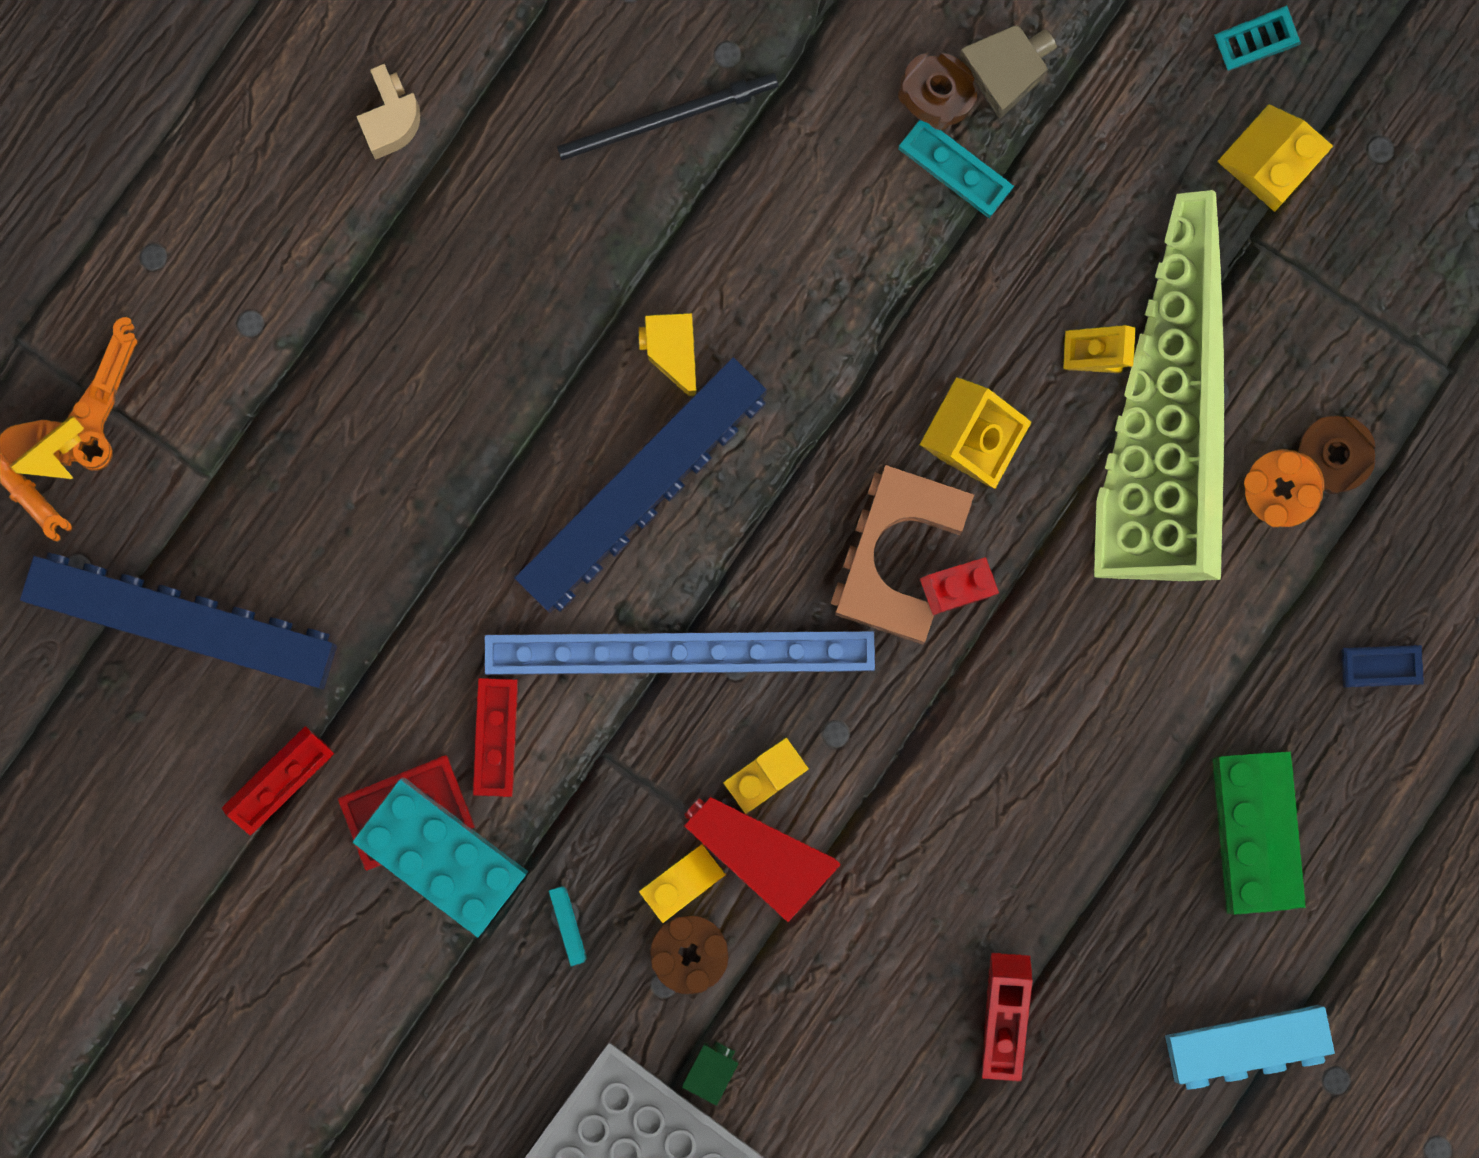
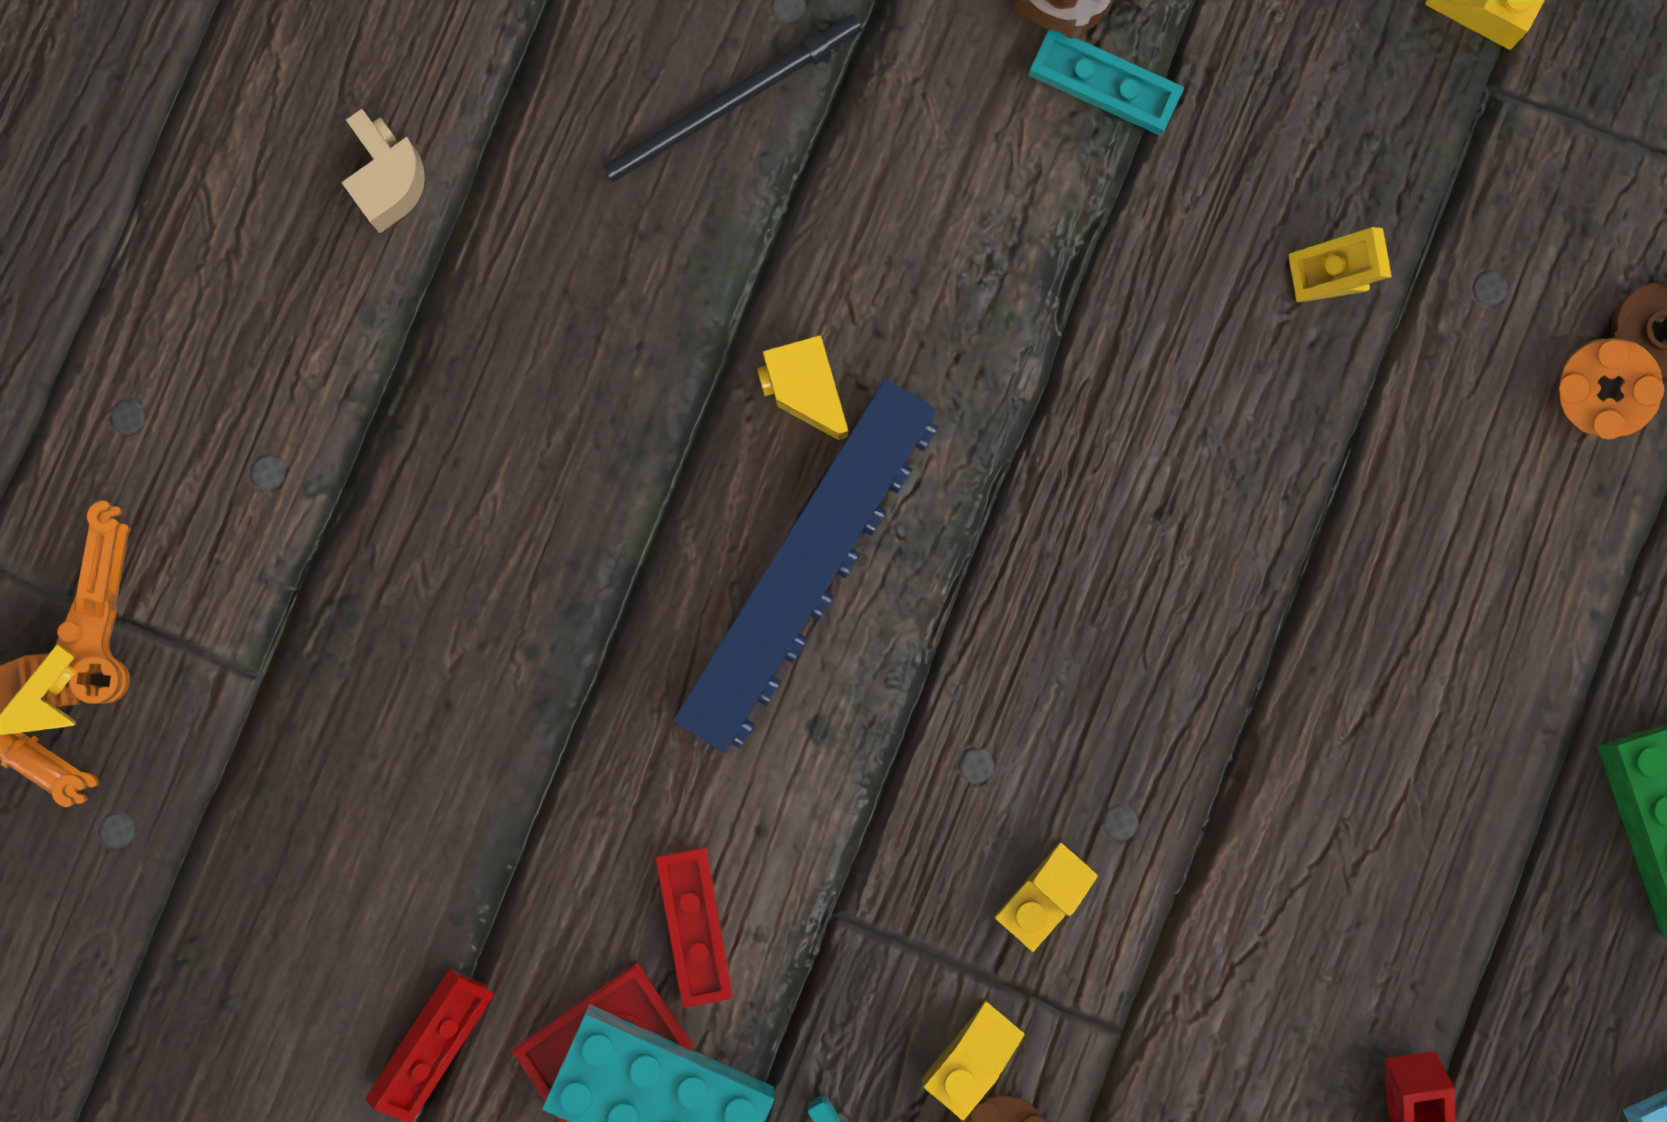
camera: 15 degrees left, 0 degrees up
(179, 622) = (258, 872): dark blue brick -> none
(679, 653) = (902, 766): medium blue plate -> none
(767, 860) = (1073, 1004): red slope -> none
(897, 500) = (1116, 638): nougat arch -> none
(959, 586) = (1235, 603): red plate -> none
(975, 432) = (1208, 404): yellow slope -> none
(1166, 468) = (1455, 398): yellowish green wedge -> none

